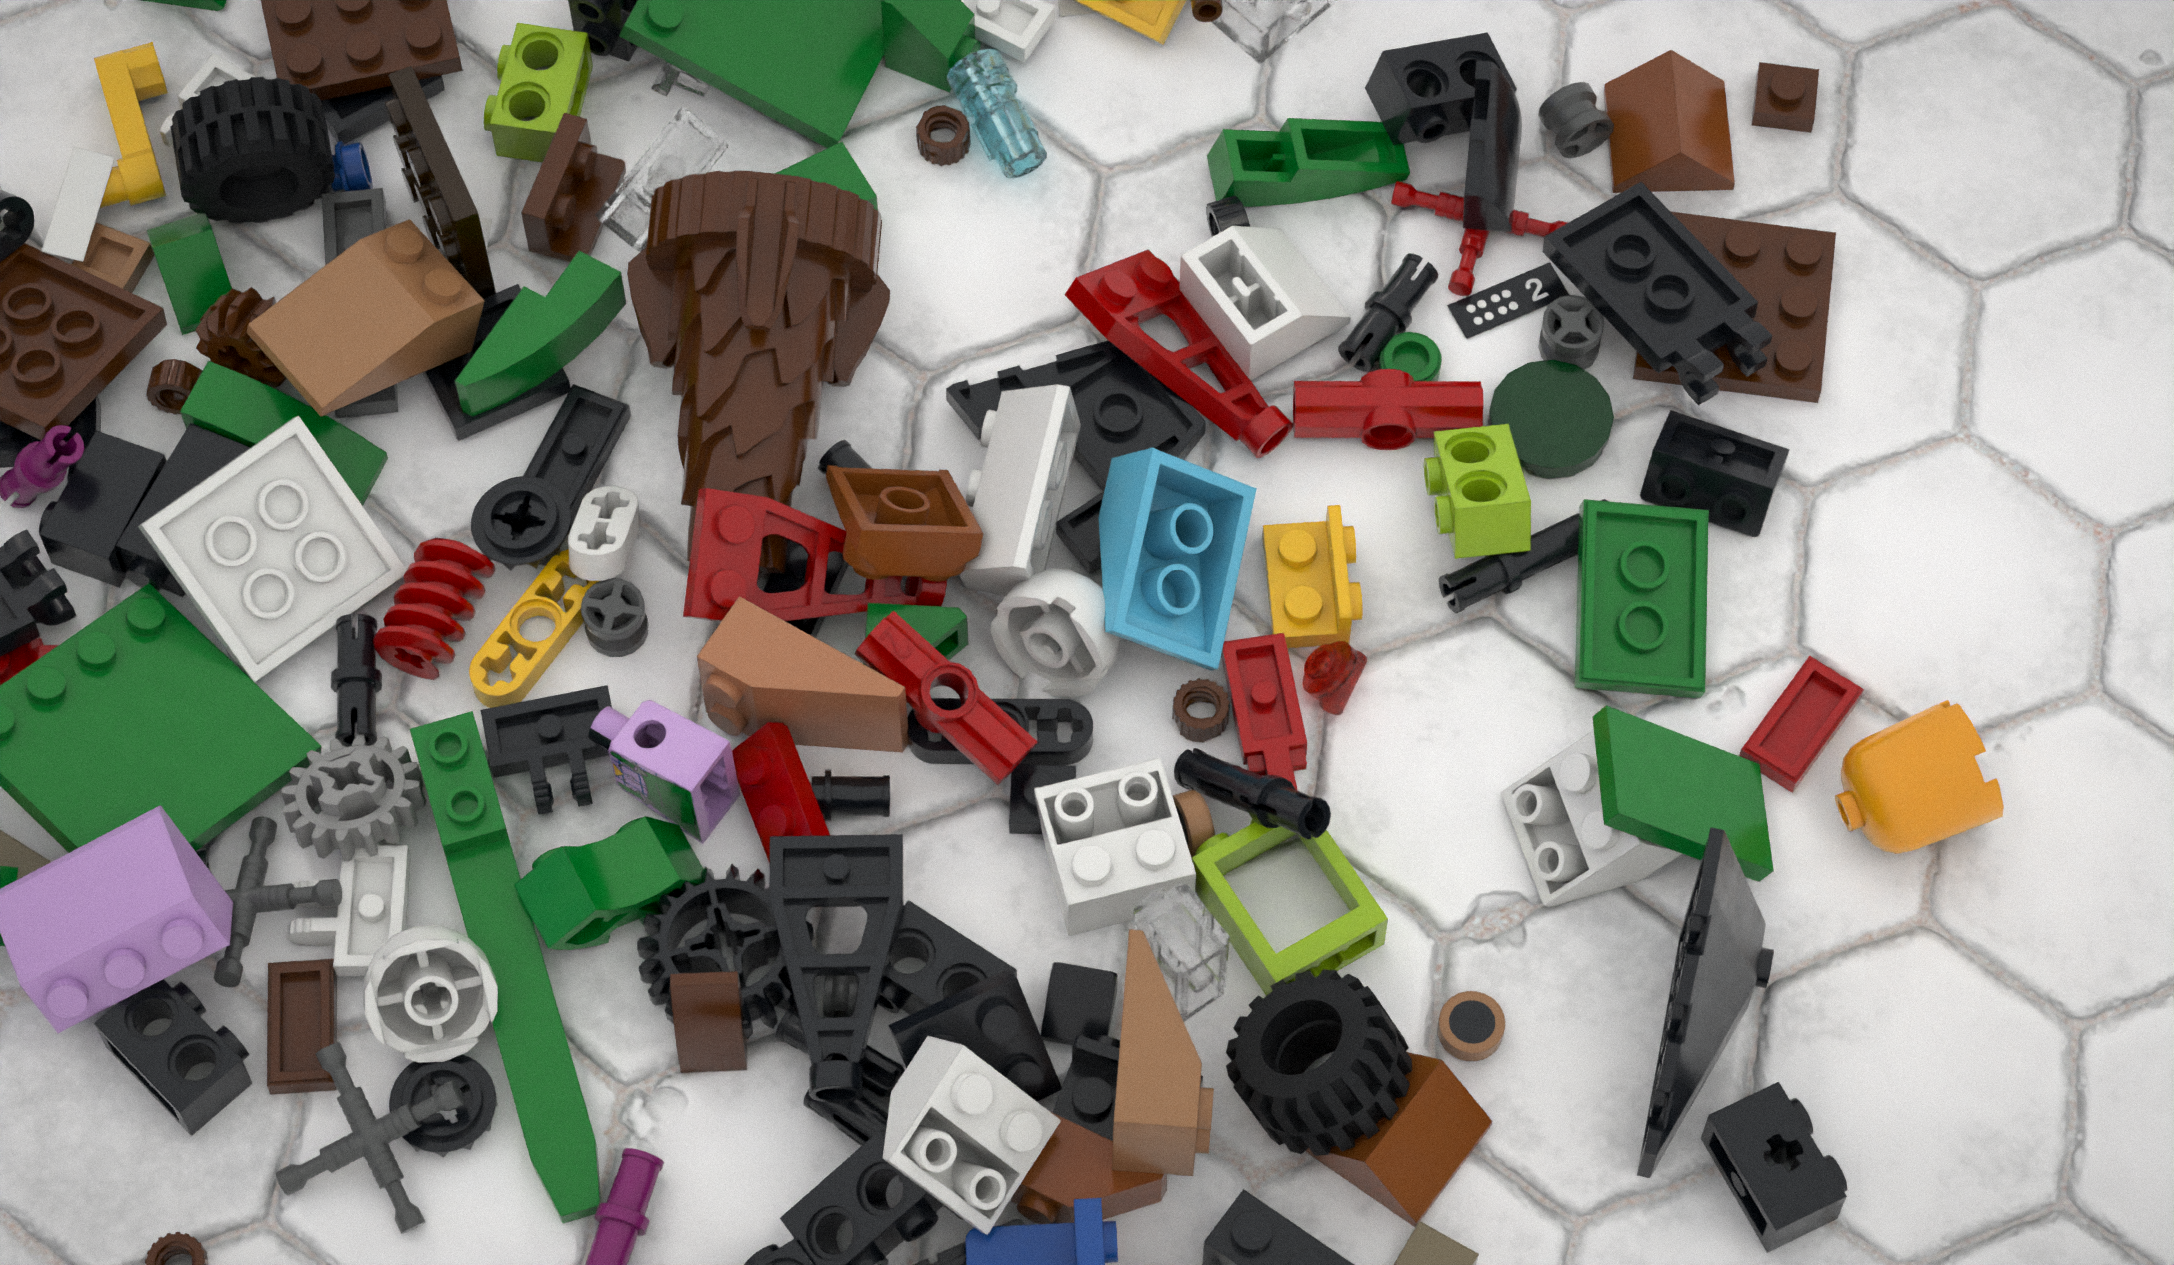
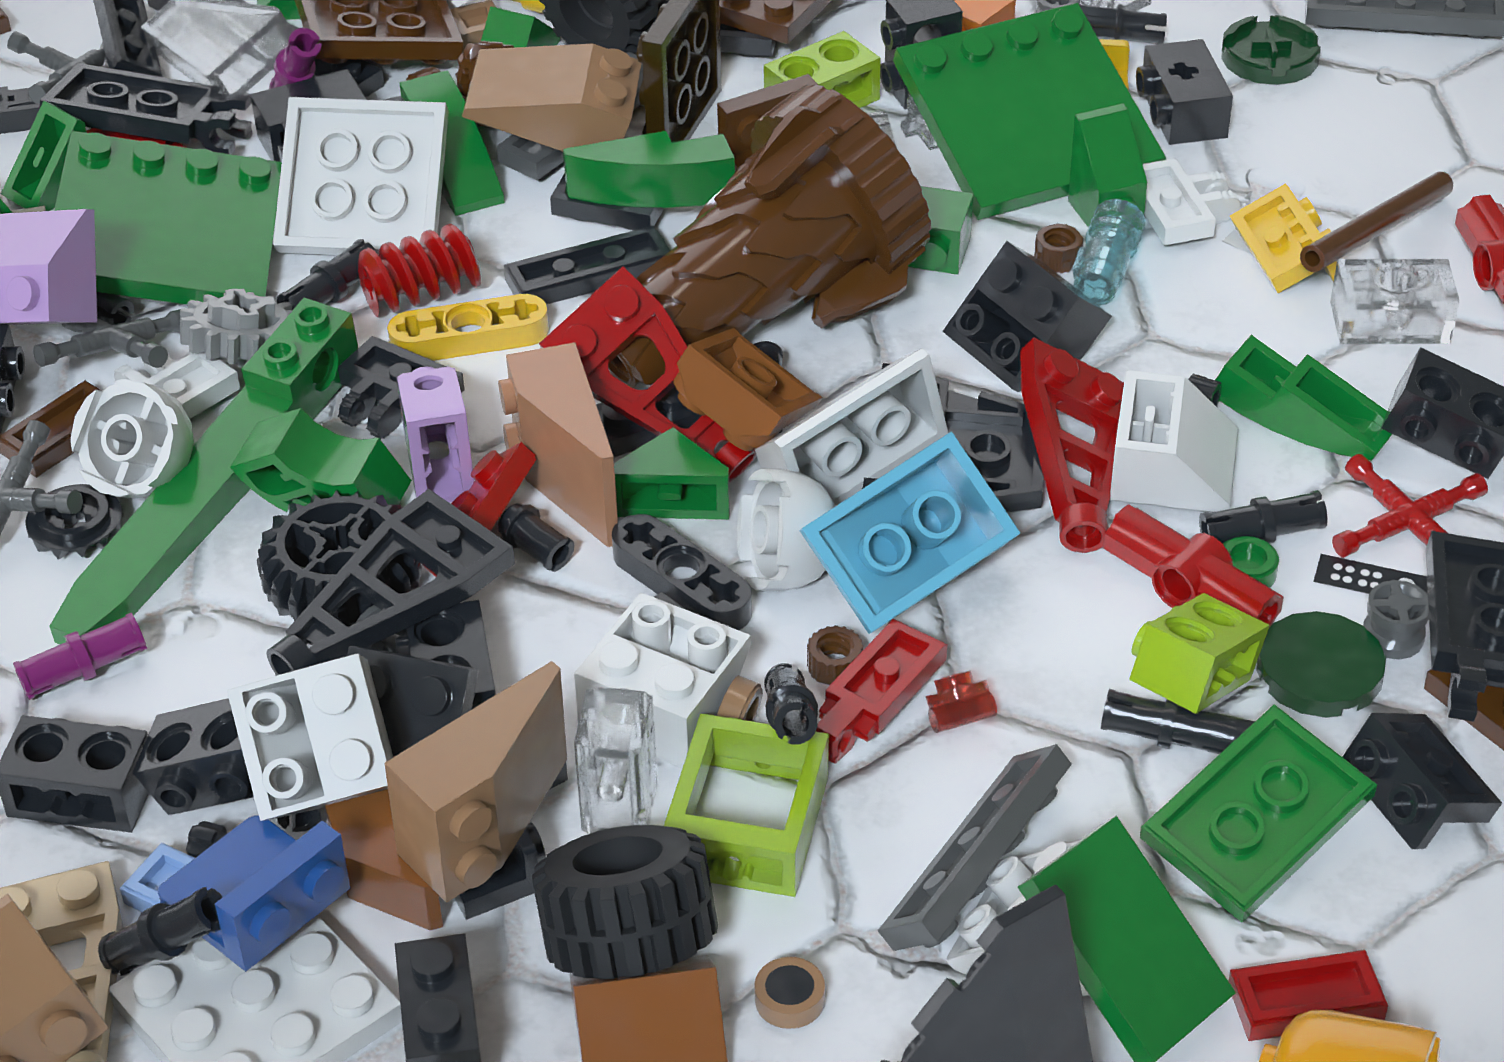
camera: 45 degrees right, 20 degrees down
(507, 504) = (536, 258): black gear -> none
(595, 529) = (555, 295): white beam -> none
(610, 602) = (513, 335): dark grey wheel -> none
(708, 1021) = (263, 567): reddish brown slope -> none
(976, 728) = (652, 528): red piece -> none
(1009, 247) = (1021, 301): none -> black slope
(1310, 580) = (1012, 635): yellow bracket -> none
(1483, 796) = (973, 850): none -> dark grey plate
(1492, 152) = (1447, 459): black slope -> none

